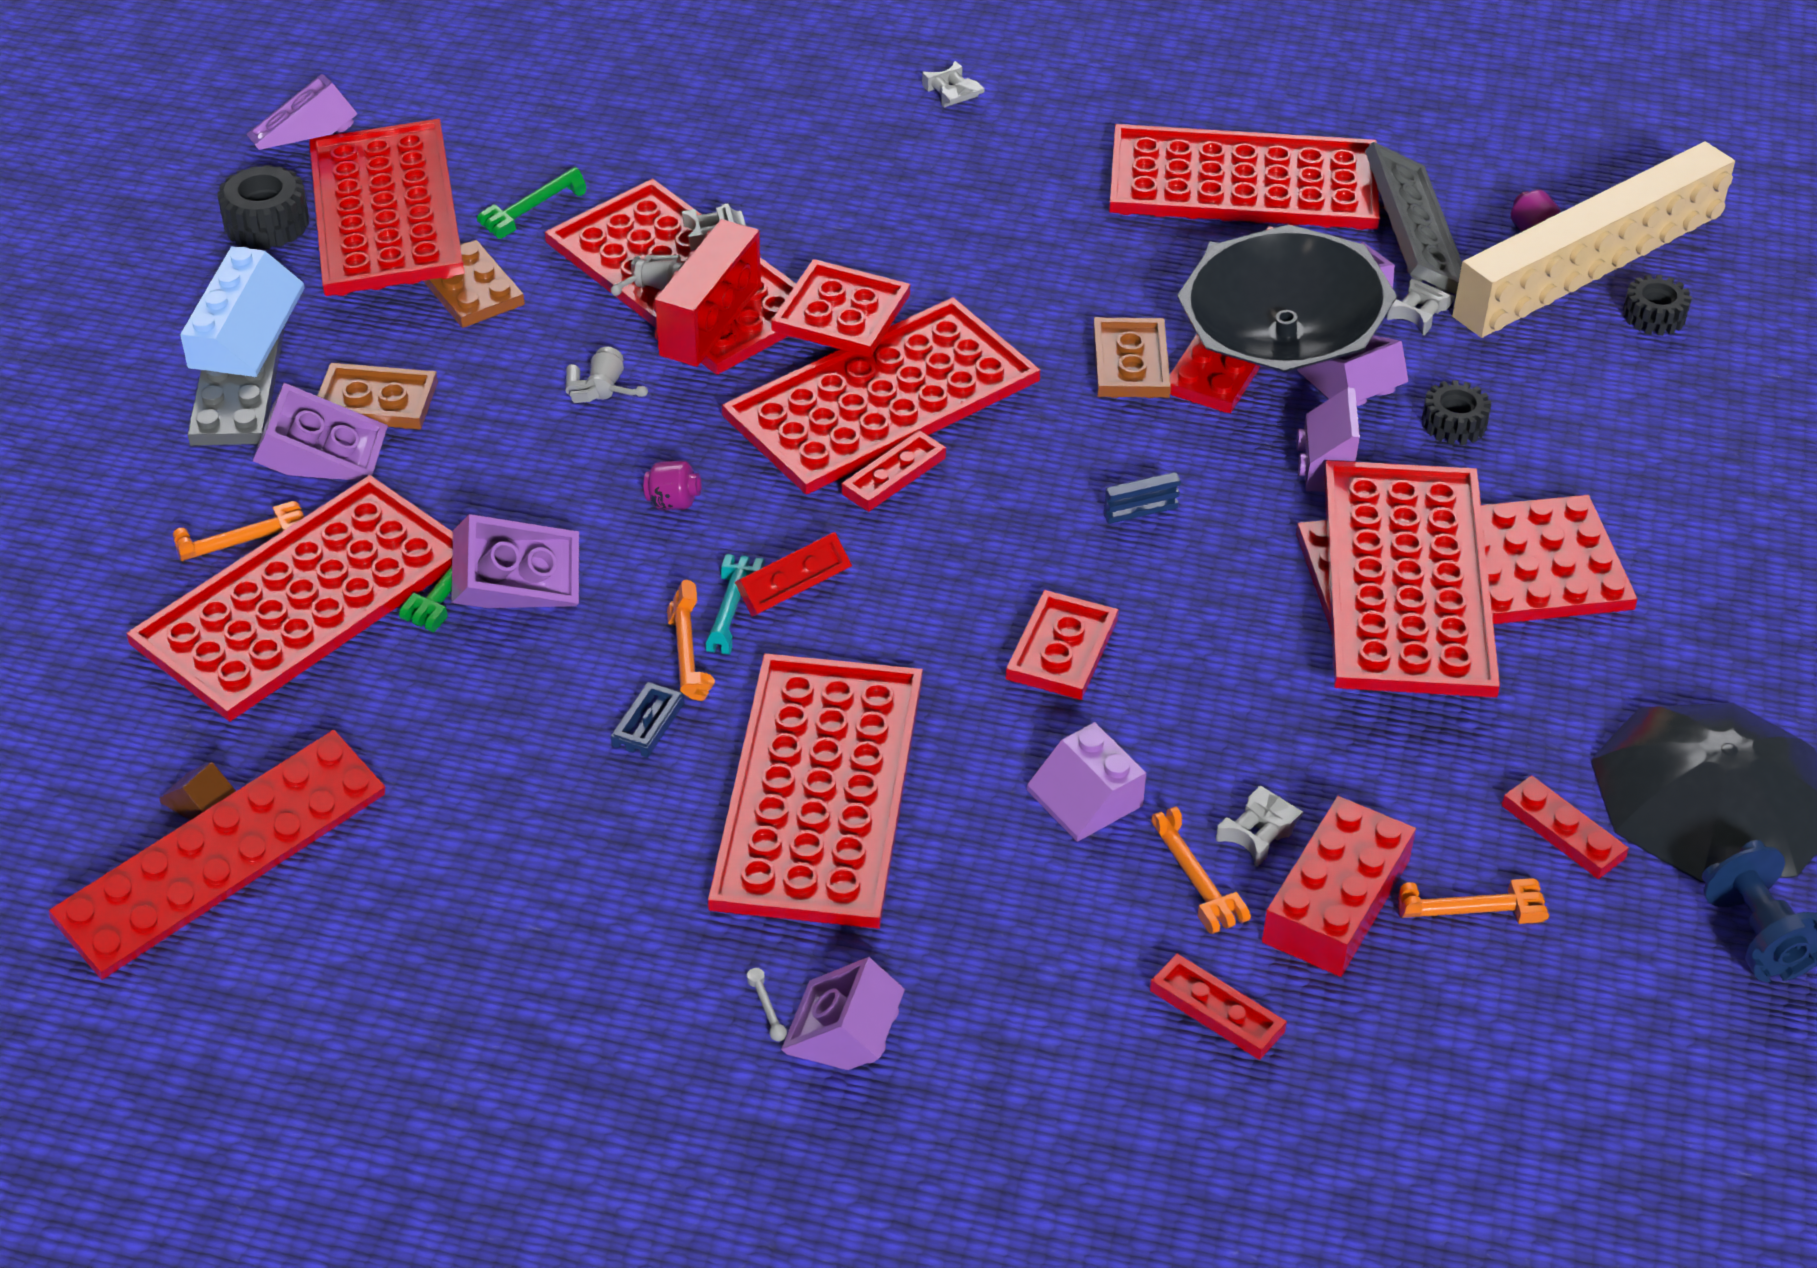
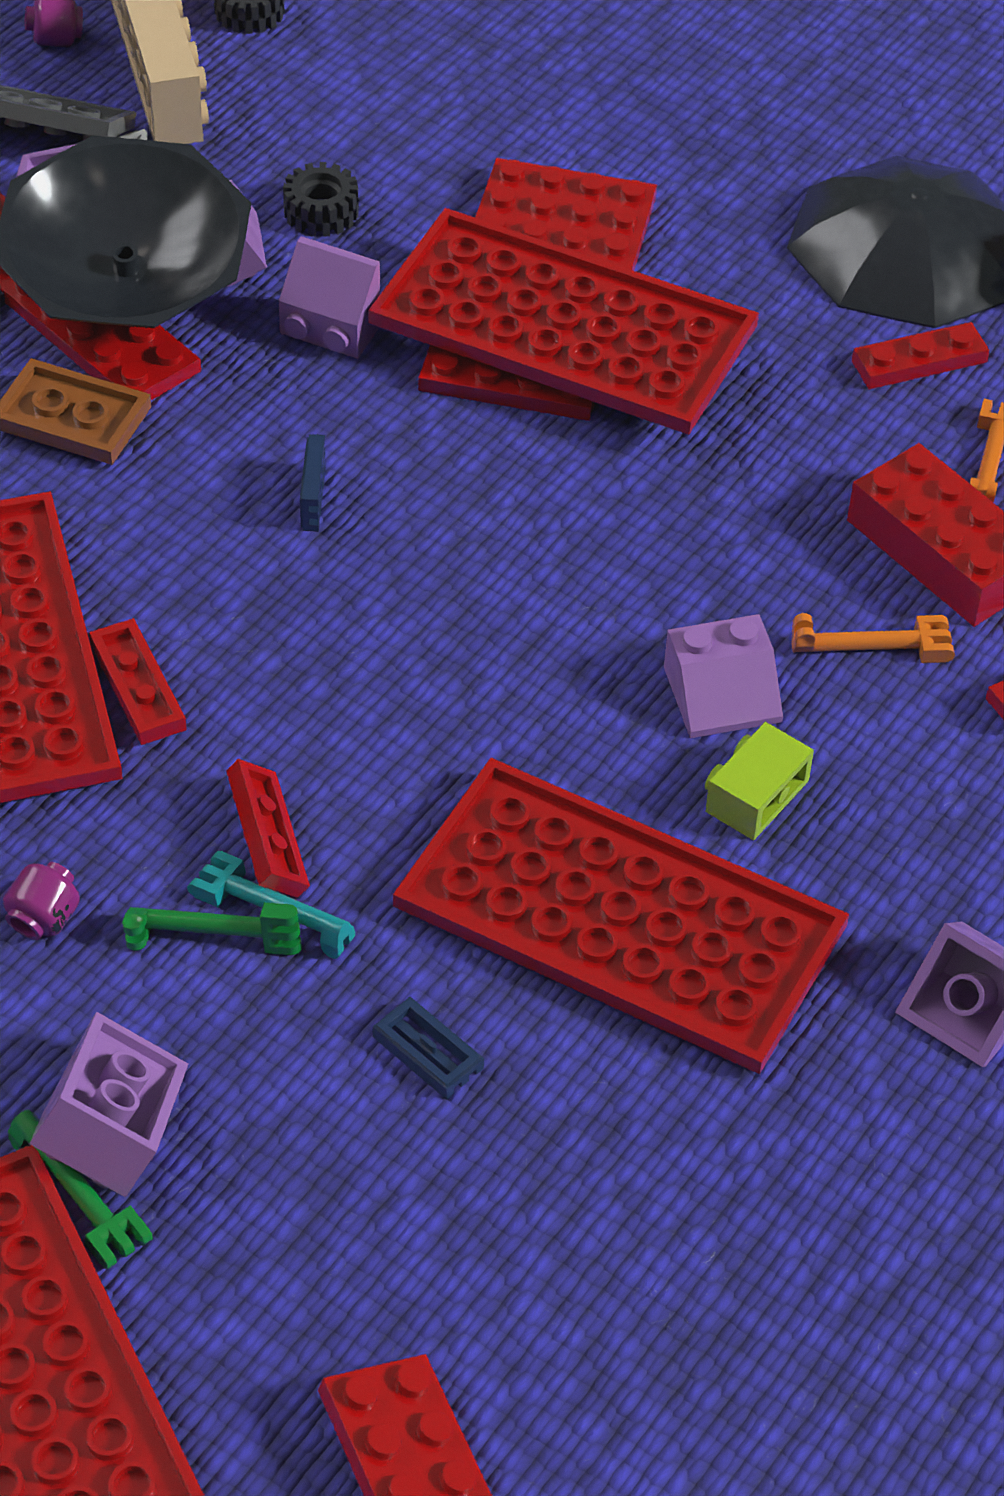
camera: 70 degrees left, 5 degrees up
(680, 541) = (276, 925): none -> green hinge
(692, 683) = (267, 954): orange hinge -> none
(756, 979) = (872, 1060): light grey hinge -> none
(990, 832) = (758, 780): none -> lime brick
(1062, 644) = (503, 628): plate -> none
(1269, 814) = (824, 552): light grey piece -> none

